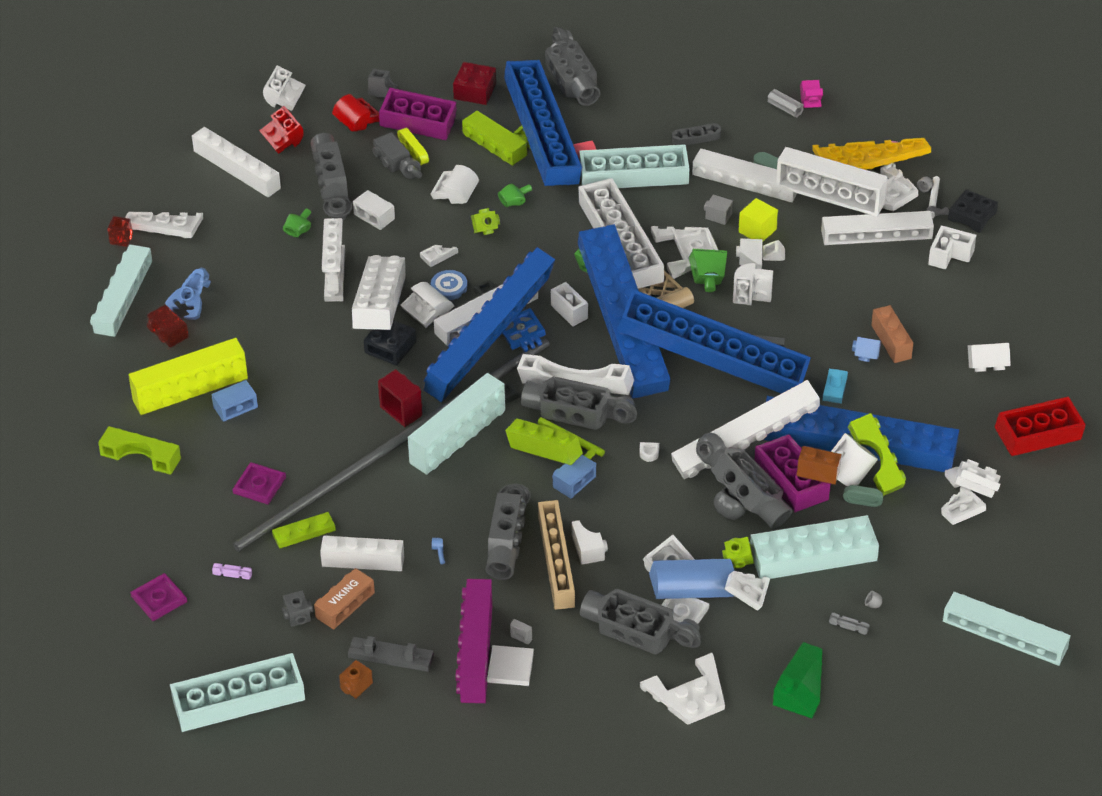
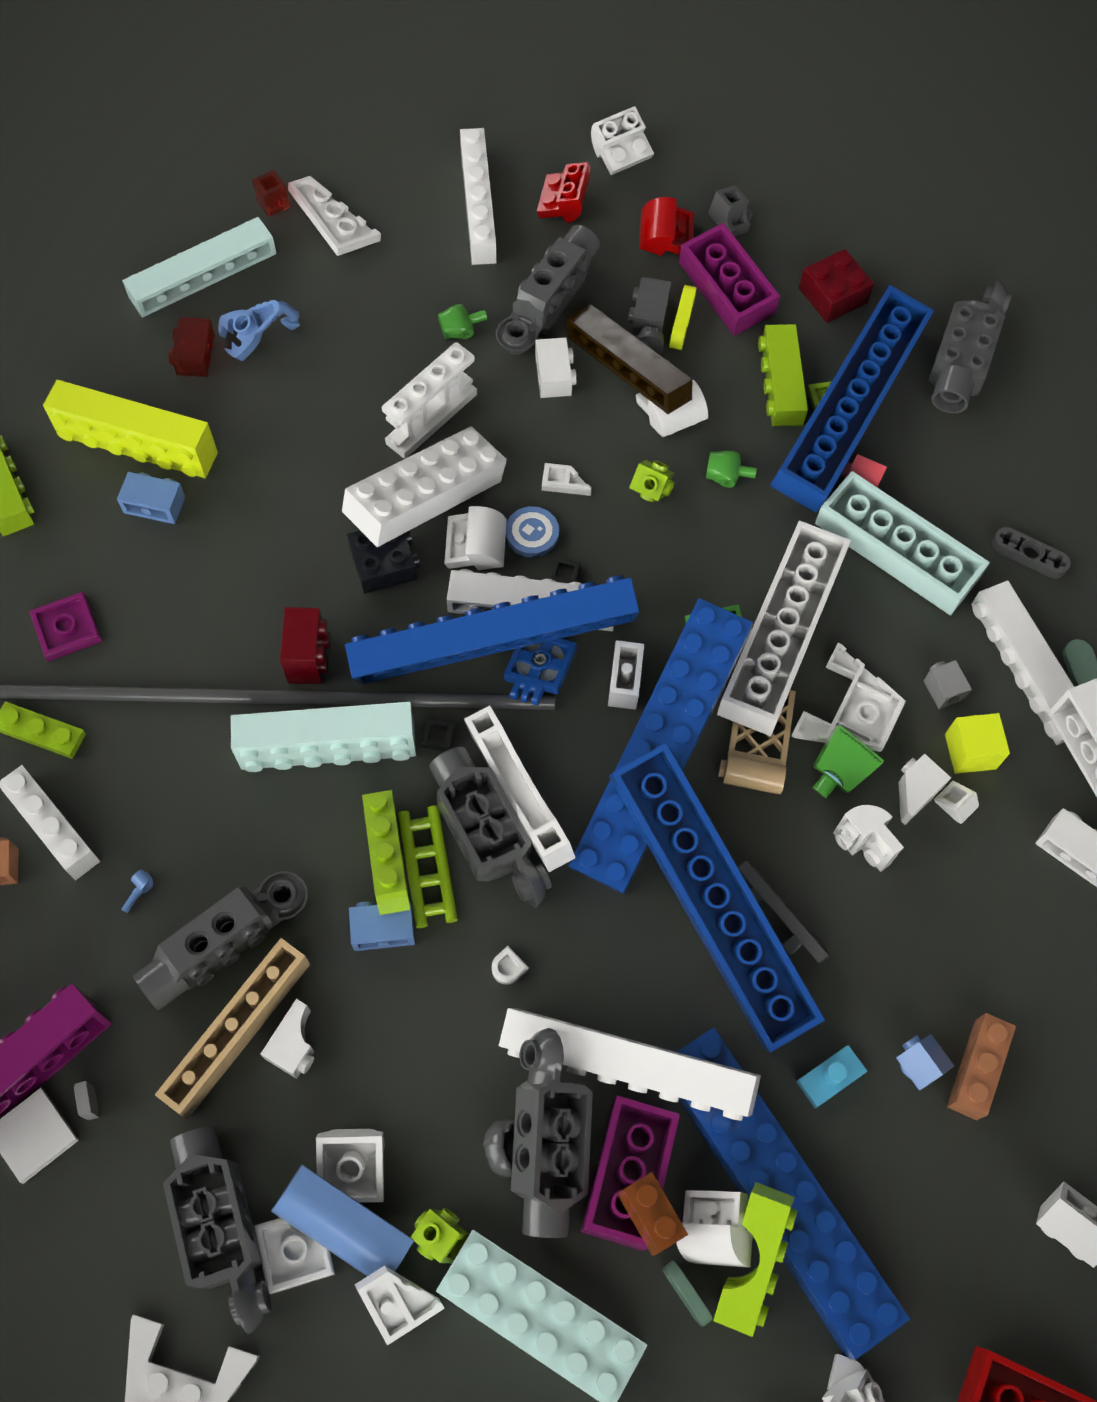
camera: 40 degrees right, 20 degrees up
(413, 176) = (630, 359): none -> dark brown brick

